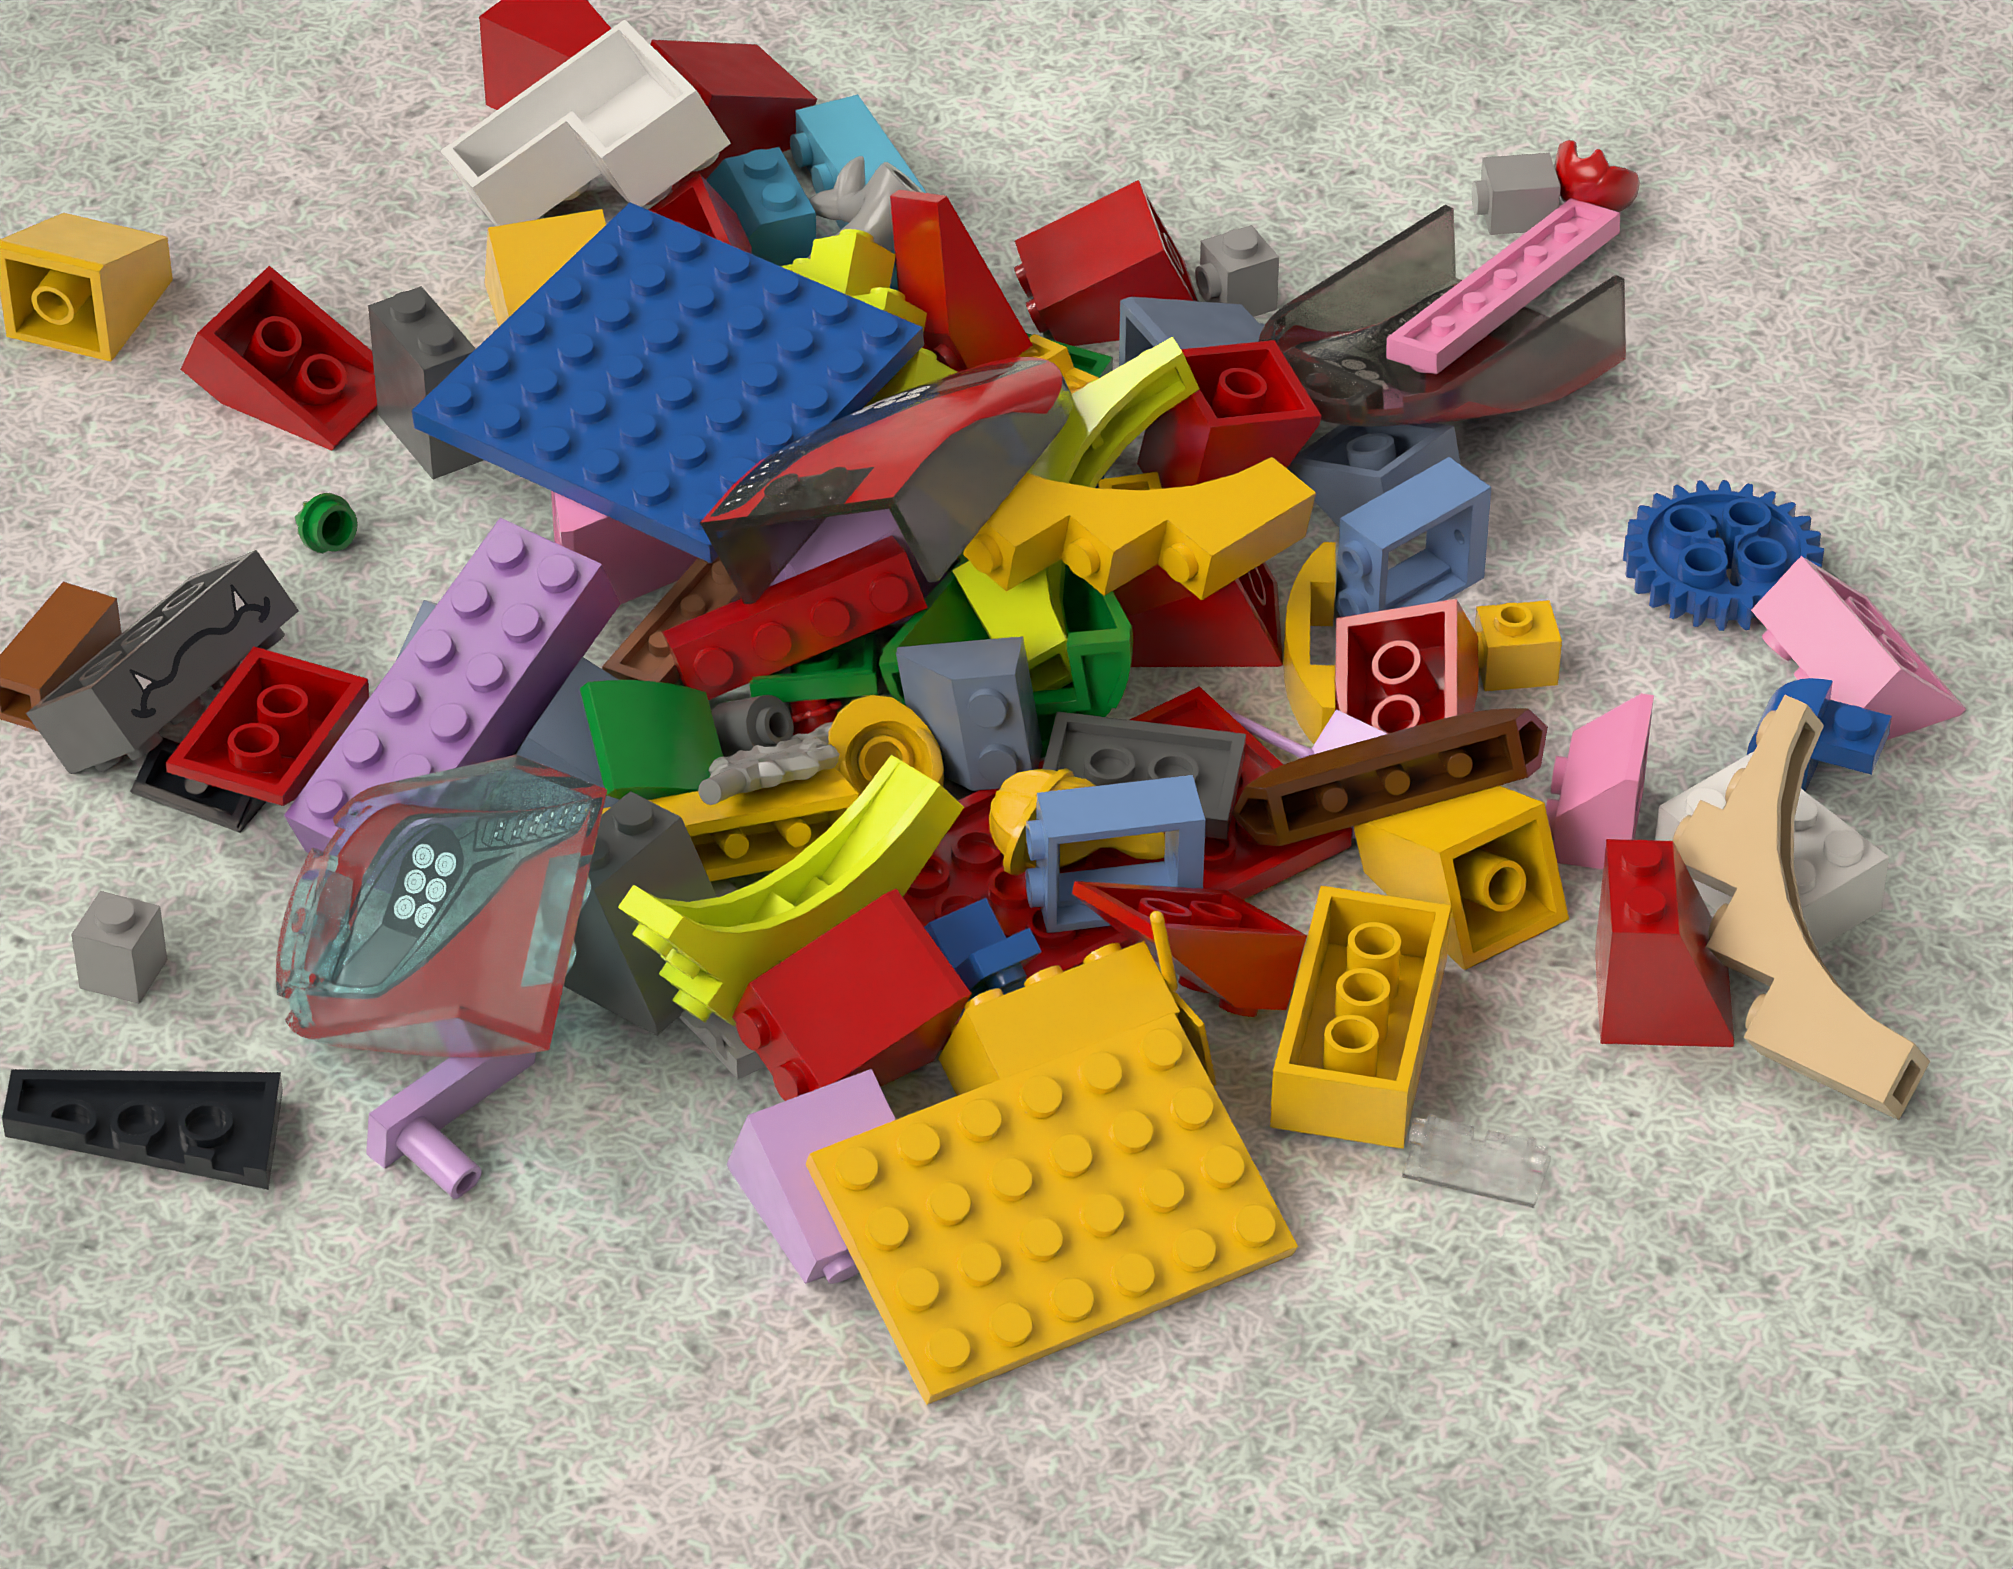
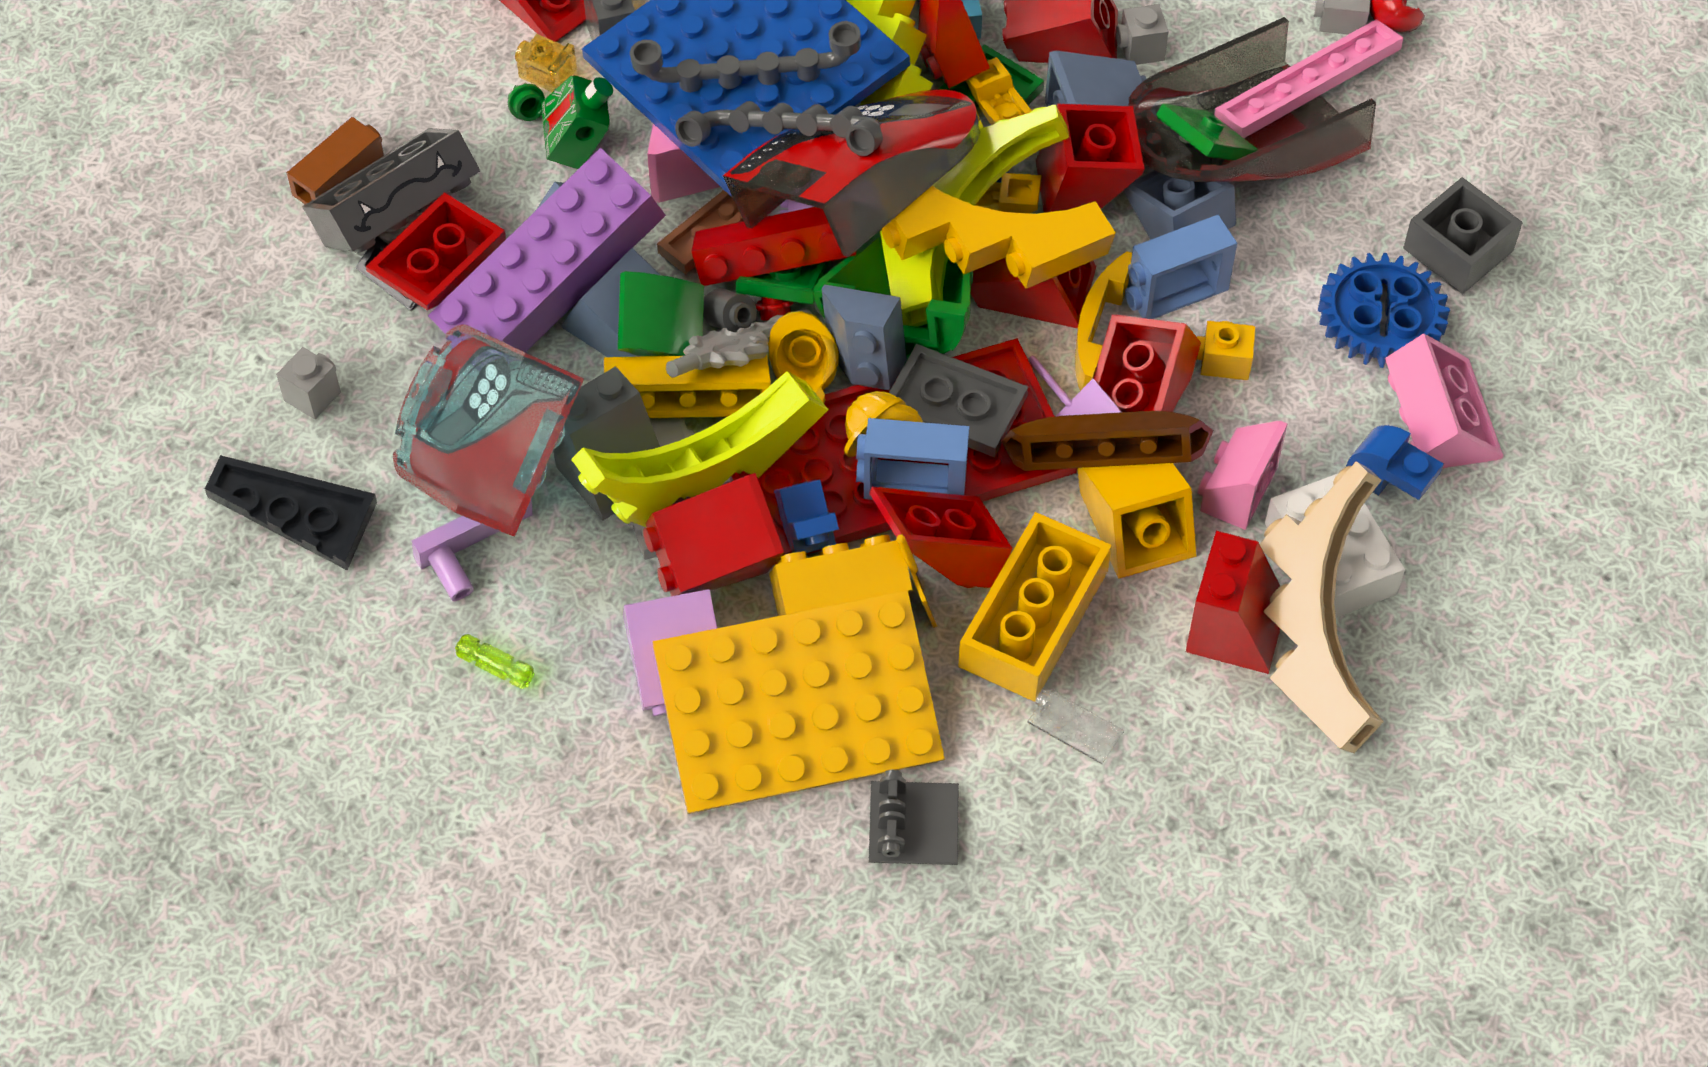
camera: 15 degrees right, 15 degrees up
(338, 465) = (545, 62): none -> clear yellow brick
(419, 523) = (575, 119): none -> green torso
(538, 382) = (843, 41): none -> dark grey bar
(550, 1261) = (494, 661): none -> clear neon green axle
(914, 406) = (861, 132): none -> dark grey bar
(1279, 1337) = (913, 821): none -> dark grey hinge
(1388, 360) = (1205, 132): none -> green plate
(1802, 437) = (1462, 235): none -> dark grey brick

